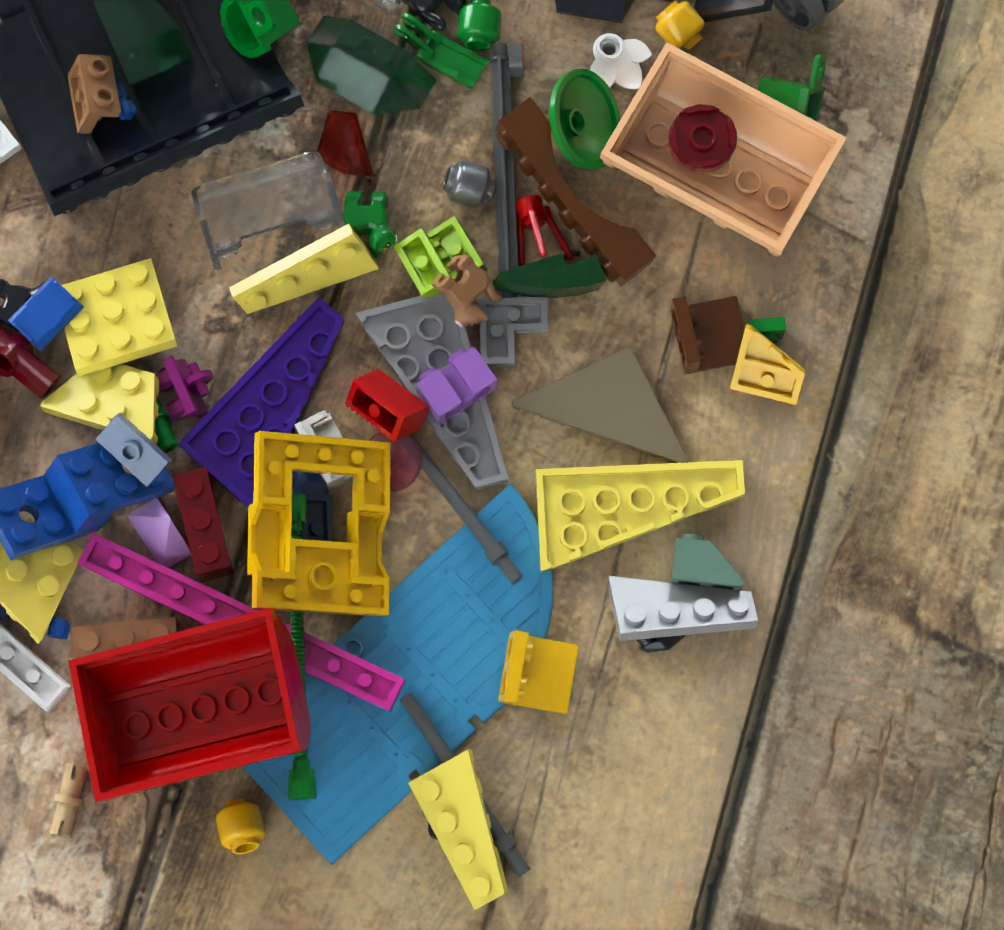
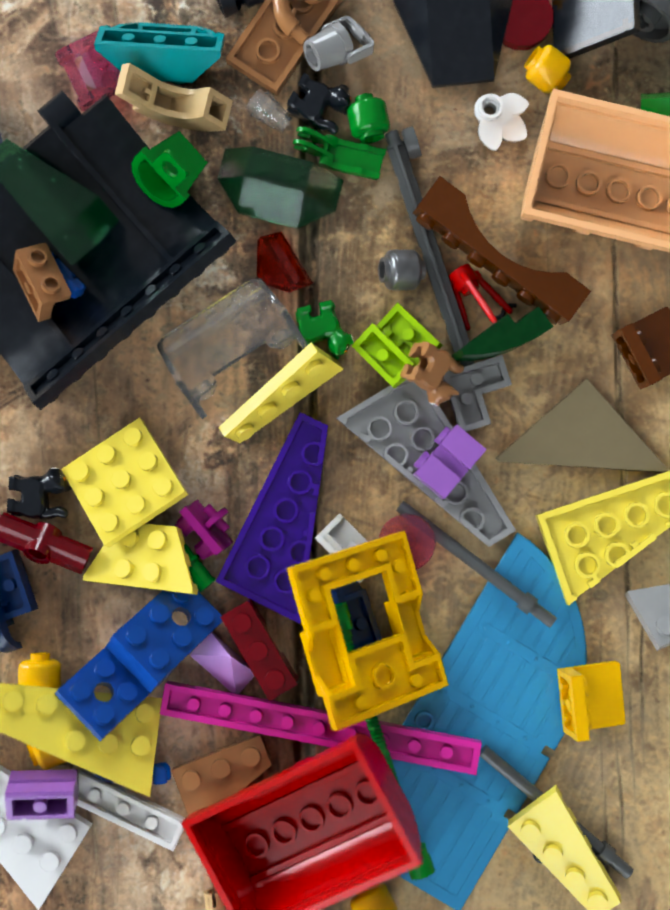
camera: 10 degrees left, 10 degrees up
(45, 313) = (61, 499): blue piece -> none
(133, 449) = (179, 606): sand blue plate -> none
(386, 405) = (391, 496): red brick -> none
(582, 117) = (491, 182): green dish -> none
(702, 138) = (613, 172): dark red tile -> none

